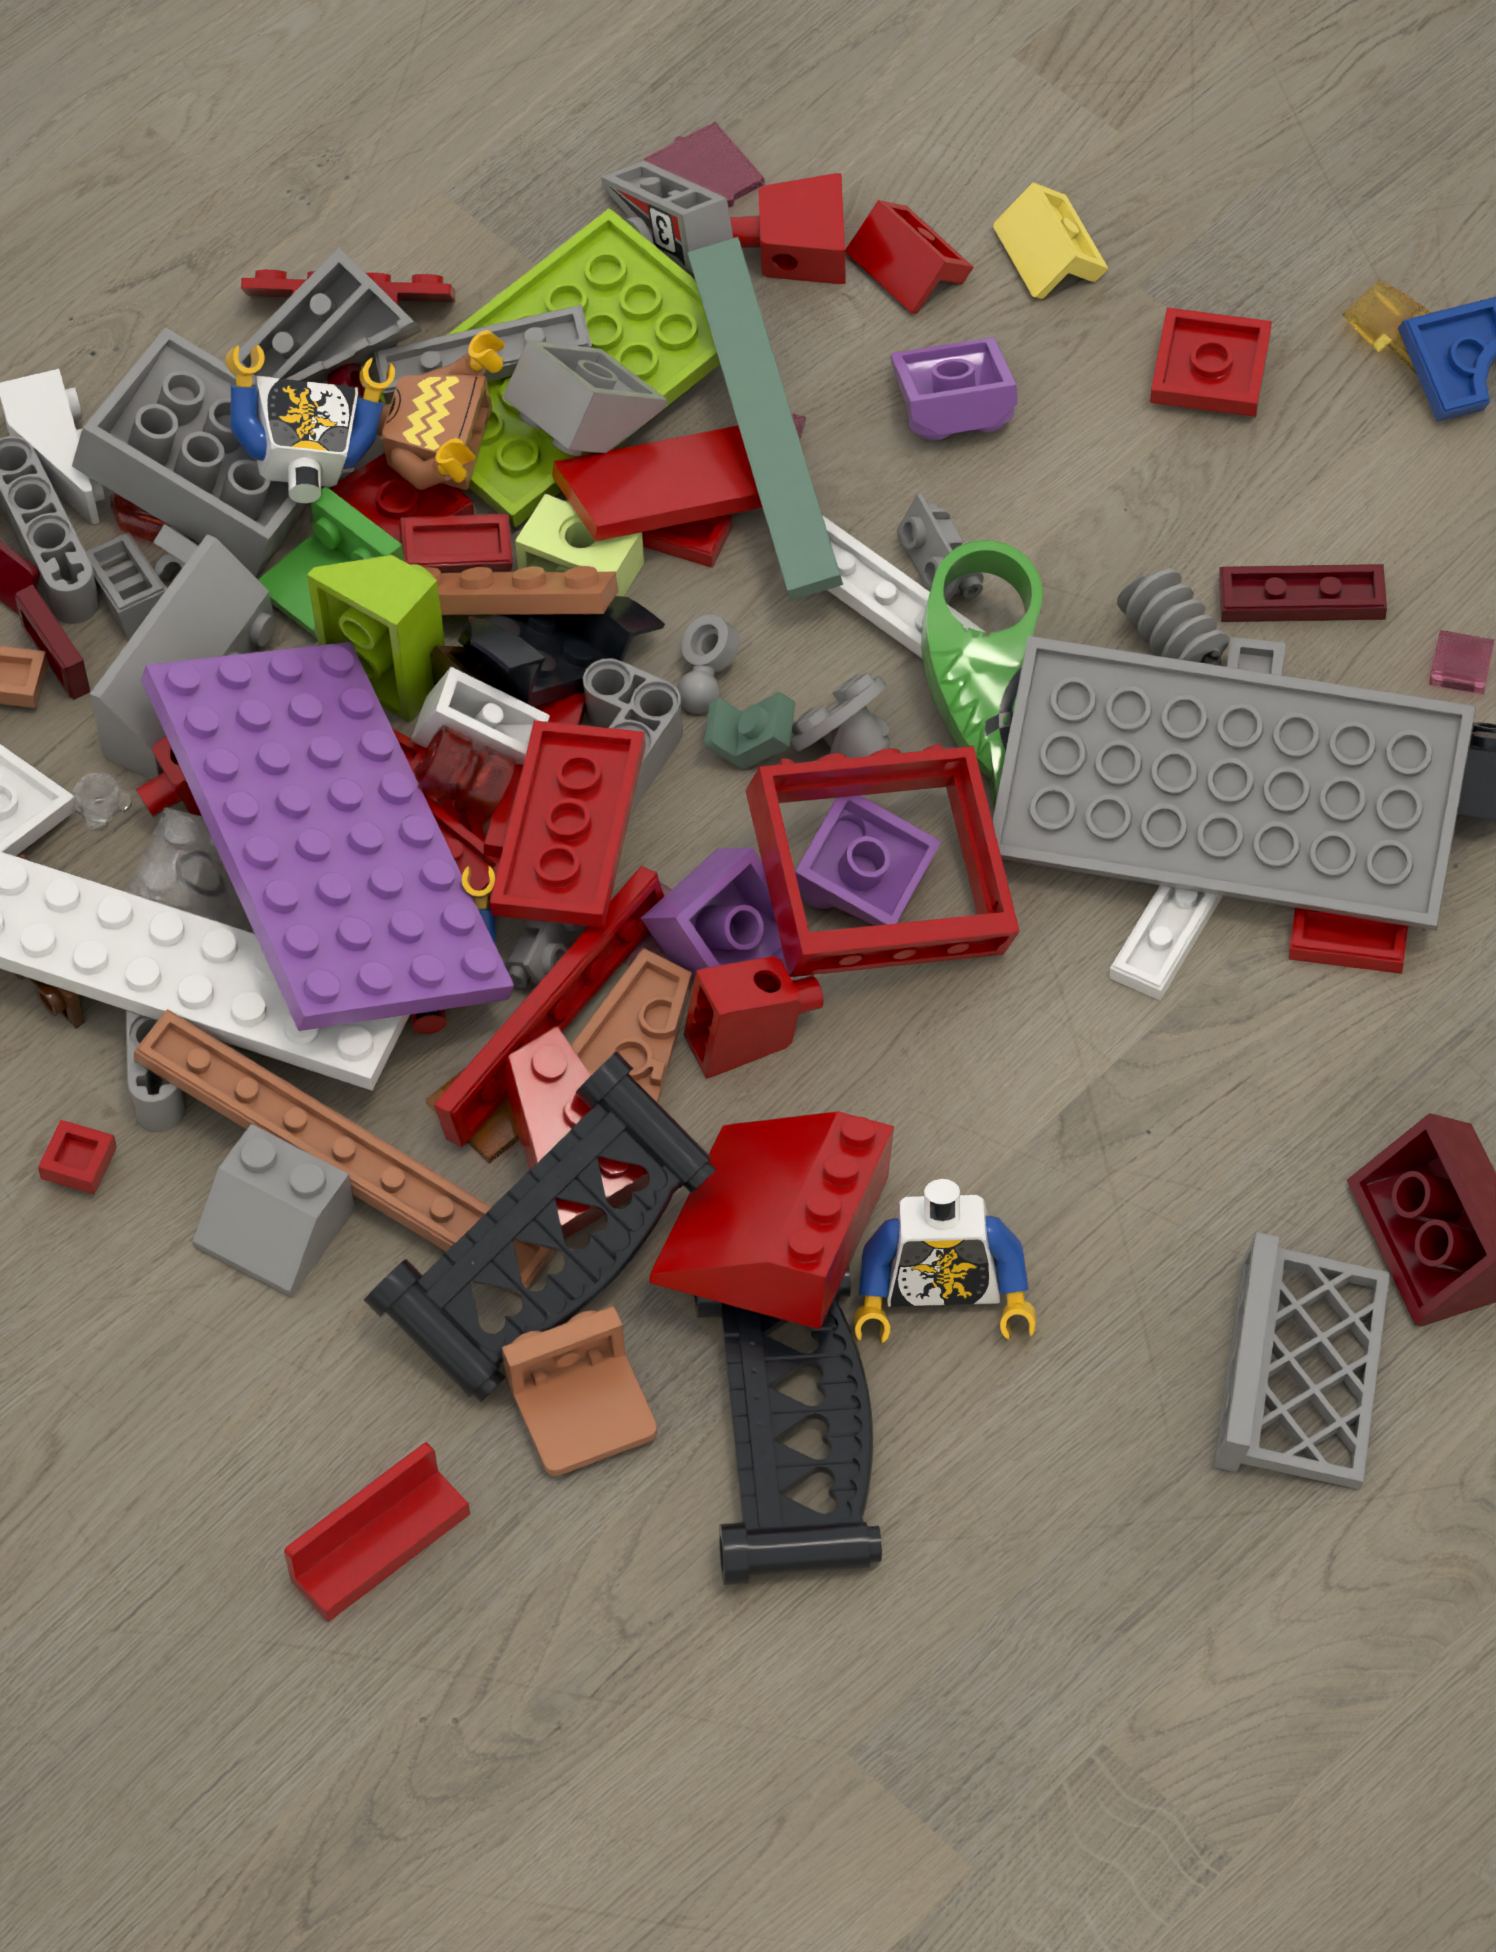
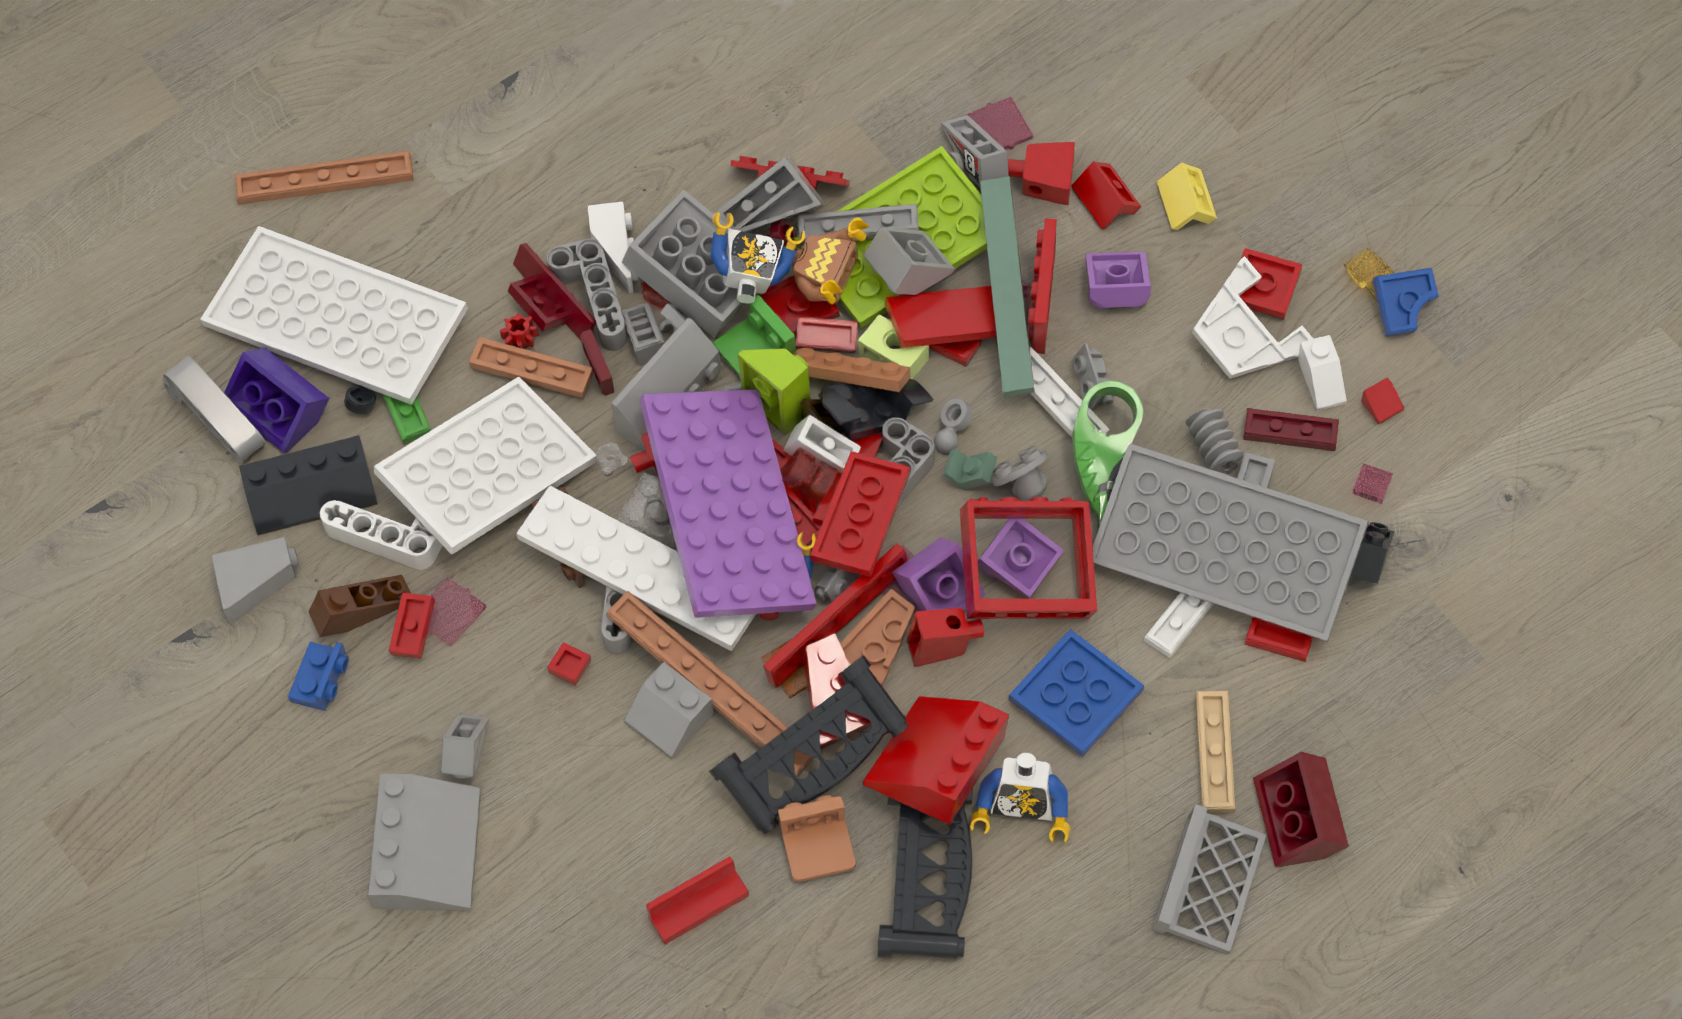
camera: 10 degrees right, 5 degrees up
(825, 408) = (1042, 285): none -> red plate
(1005, 1078) = (1076, 692): none -> blue plate
(1184, 454) = (1236, 335): none -> white wing
(1271, 1144) = (1215, 751): none -> tan tile
(1340, 490) = (1322, 372): none -> white slope
(1452, 524) = (1382, 400): none -> red slope

